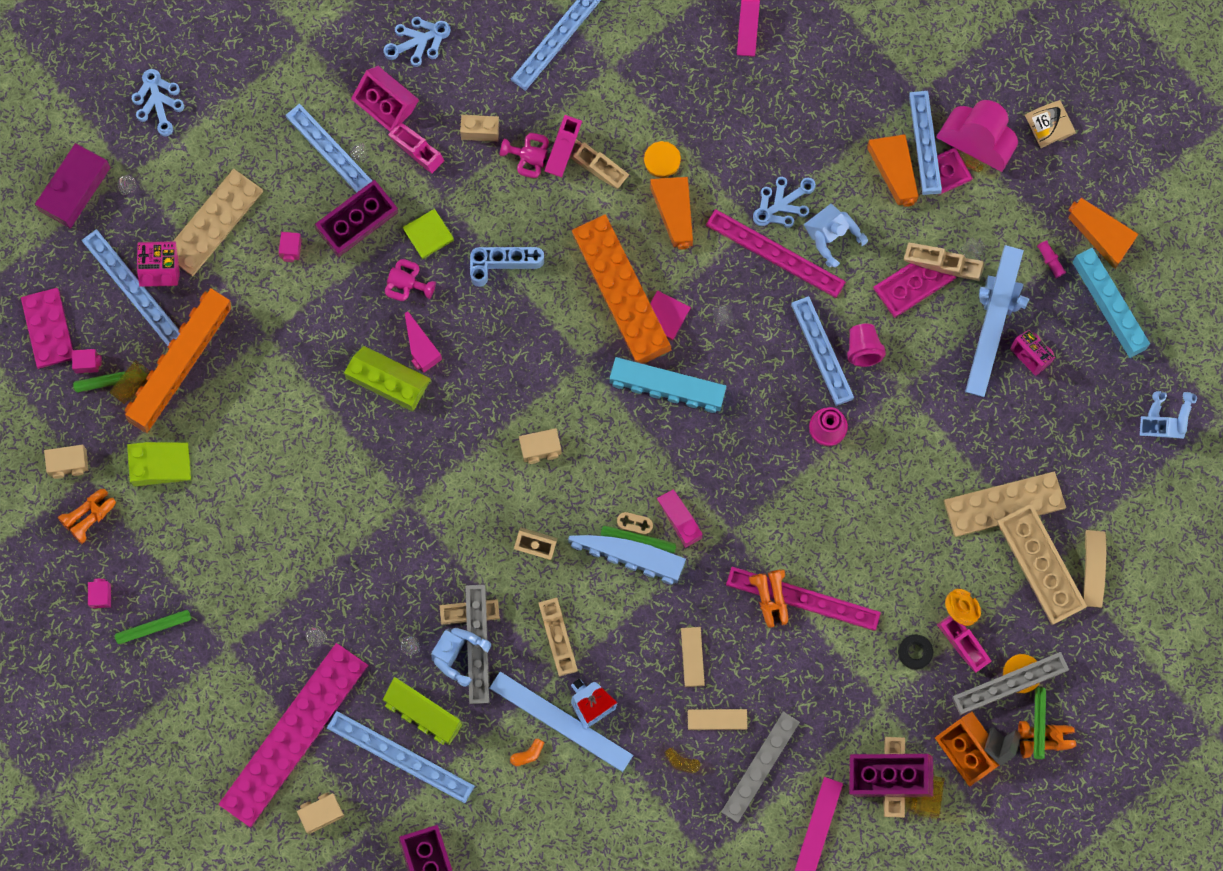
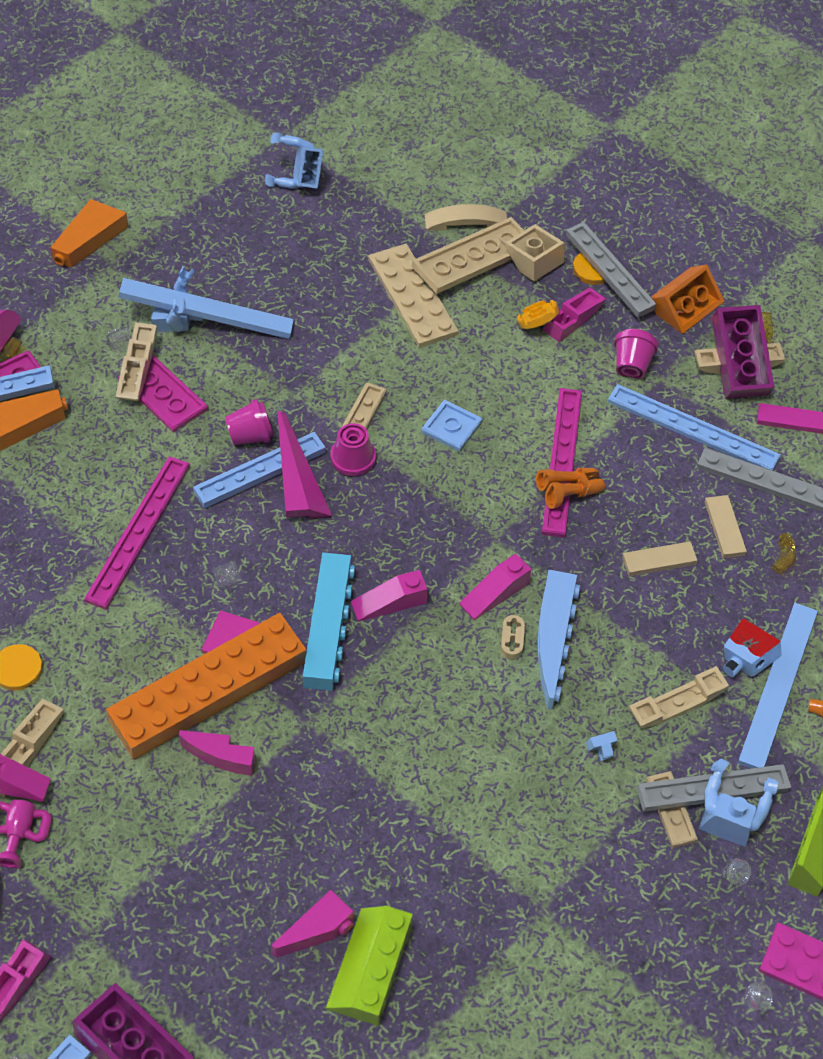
camera: 100 degrees left, 20 degrees down
(403, 280) = (222, 962): dark pink piece -> none
(428, 234) = (145, 946): lime tile -> none
(506, 263) = (178, 832): light blue beam -> none
(528, 570) = (602, 745): none -> light blue tile
(535, 543) = (567, 737): tan brick -> none
(540, 445) = (434, 753): tan brick -> none
(565, 294) = (218, 751): none -> dark pink slope
(658, 543) = (531, 632): bright green axle -> none
(674, 206) = (89, 640): orange slope -> none
(682, 435) = (392, 596): none -> dark pink slope
(781, 203) = (70, 531): light blue plant -> none
(794, 378) = (300, 486): none -> dark pink wedge
(824, 719) = (693, 428): none -> light blue tile
(828, 226) = (104, 473): light blue torso -> none
(852, 513) = (451, 425): none -> light blue tile
(876, 442) = (366, 405): none -> tan tile
(905, 681) = (634, 352): none -> dark pink piece
(919, 640) = (595, 344): black tyre -> none
(1000, 747) = (679, 264): dark grey panel -> none
(1032, 352) = (238, 278): dark pink slope -> none
(1038, 618) = (535, 252): none -> tan slope
(1039, 723) = (647, 241): bright green axle -> none
(1051, 259) = (123, 272): dark pink pin -> none
(1052, 732) = (657, 232): orange piece -> none
(1111, 302) = (170, 220): medium azure brick -> none

